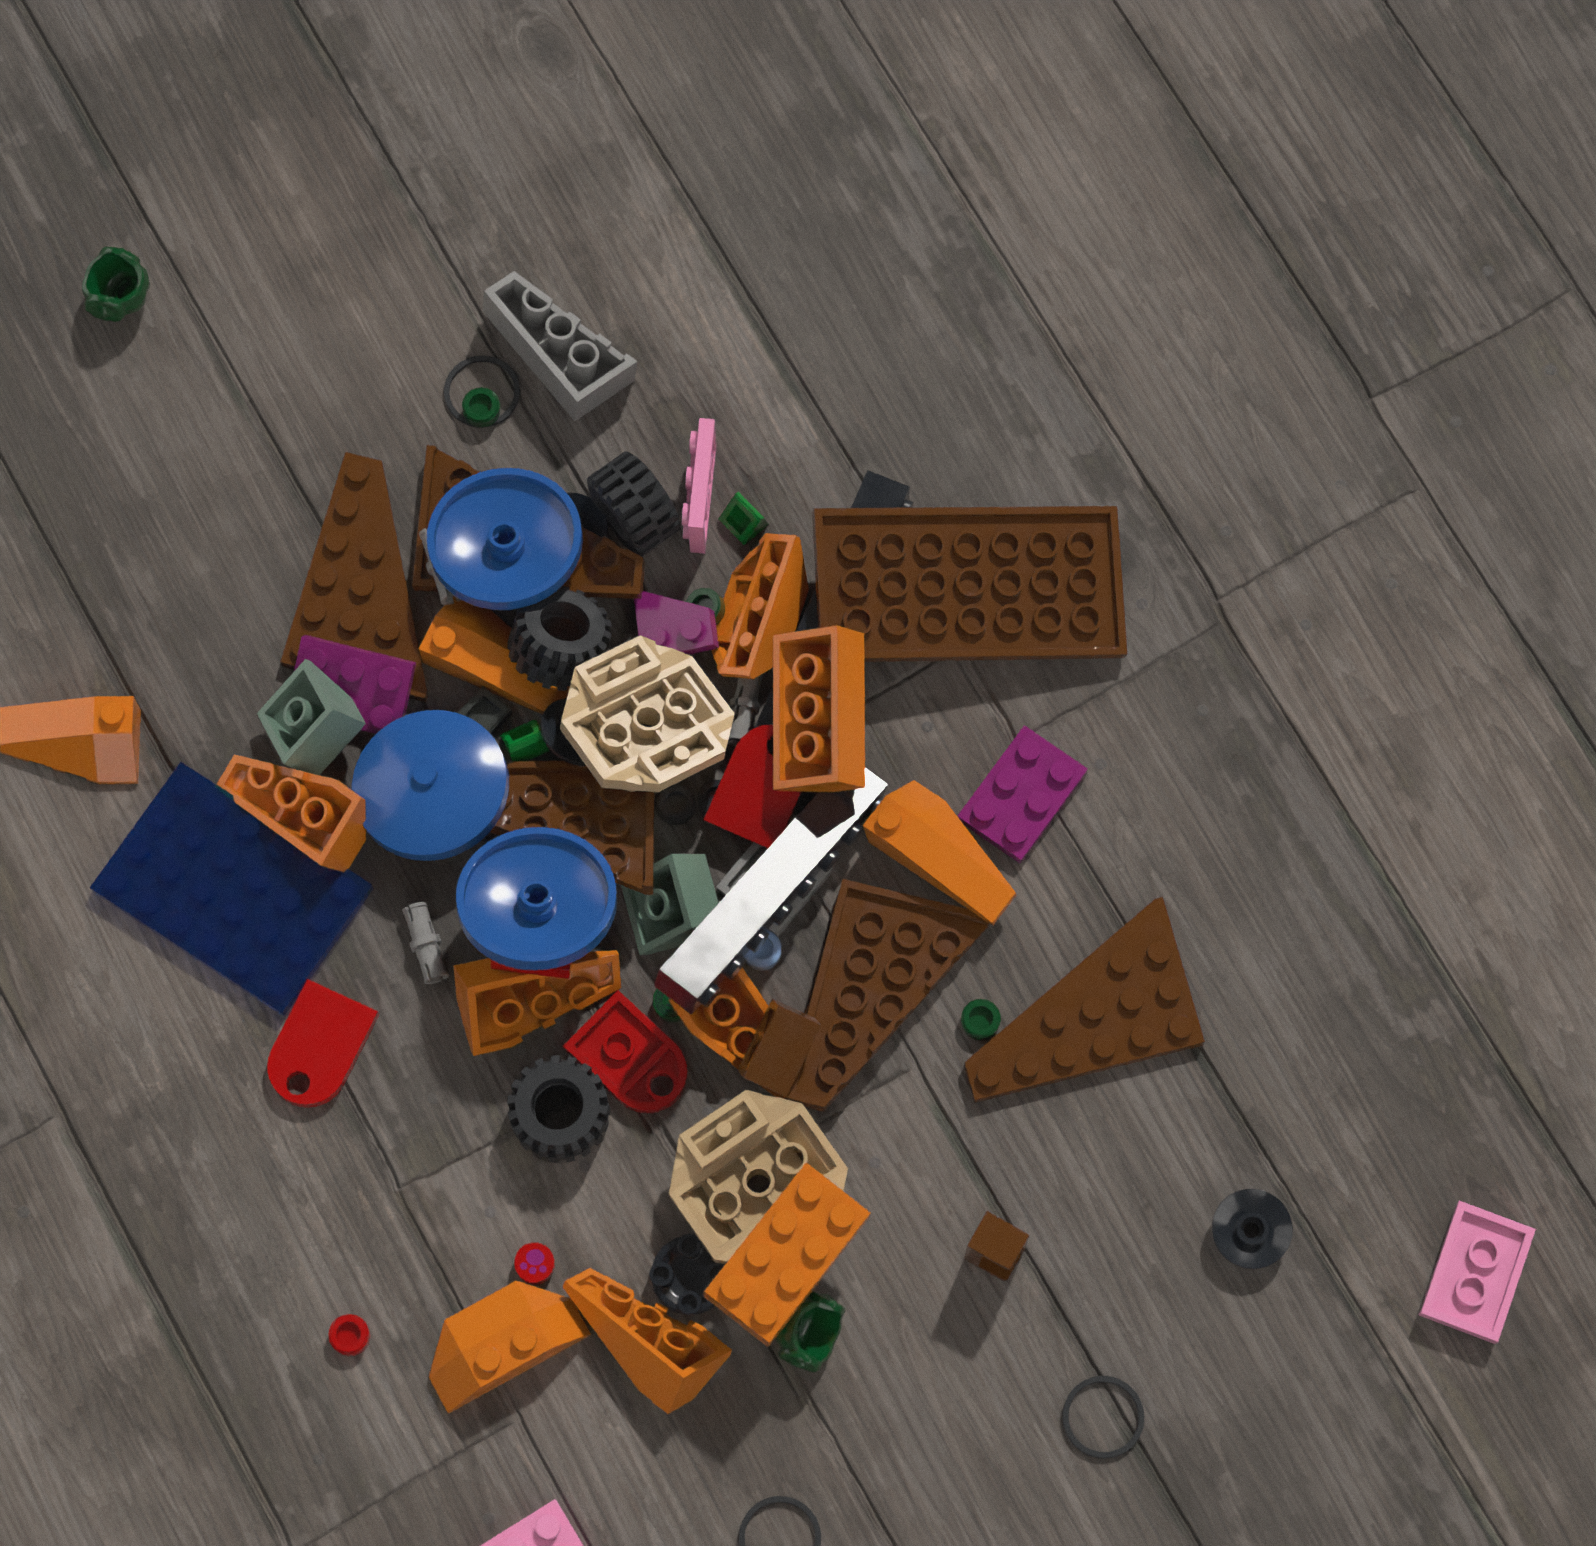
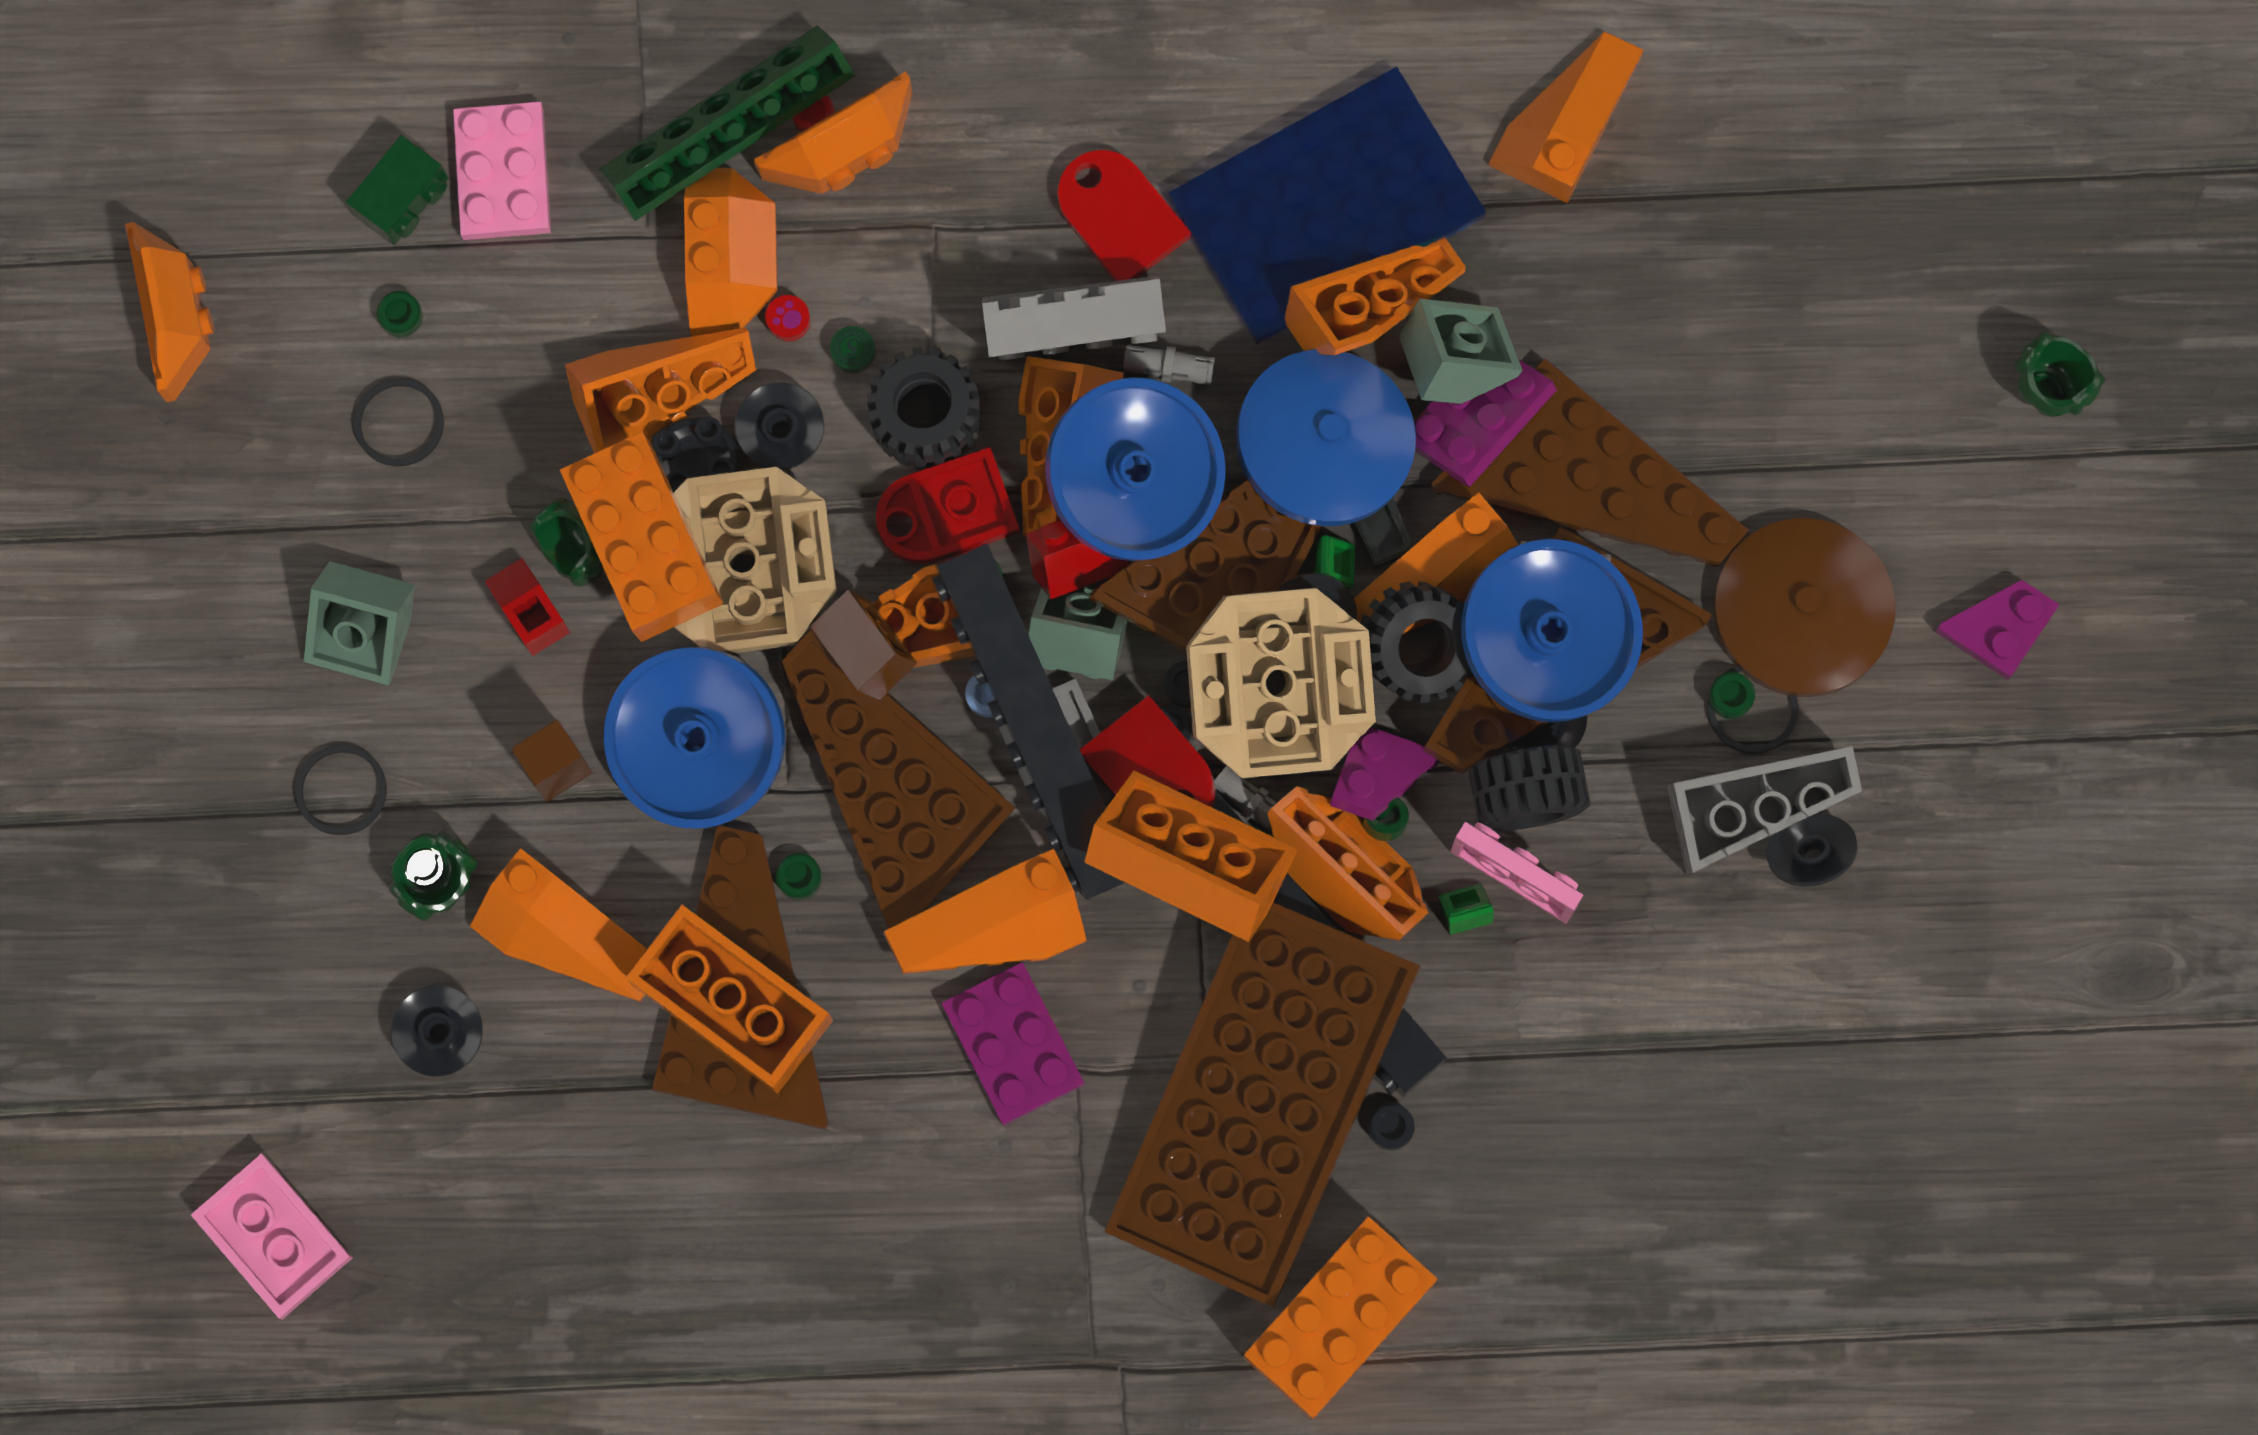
camera: 120 degrees right, 5 degrees up
(330, 244) = (2001, 627): none -> magenta wing
(363, 1290) = (843, 143): none -> orange wedge
(385, 388) = (1804, 607): none -> reddish brown dish
(395, 1393) = (726, 122): none -> dark green brick
(427, 1031) = (1073, 316): none -> light grey wedge
(535, 1198) = (852, 349): none -> dark green tile
(560, 282) = (1812, 850): none -> black dish
(626, 1198) = (773, 406): none -> black dish
(632, 935) = (1064, 563): none -> red slope
(880, 1341) = (527, 606): none -> red slope
(918, 1148) = (694, 737): none -> blue dish
(935, 492) = (1391, 1126): none -> black tile
(963, 1471) = (358, 622): none -> sand green slope
(1097, 458) = (1340, 1318): none -> orange brick
(1110, 1004) = (729, 999): none -> orange brick
(1121, 1184) = (551, 925): none -> orange wedge
(1135, 1297) = (431, 874): none -> dark green hair

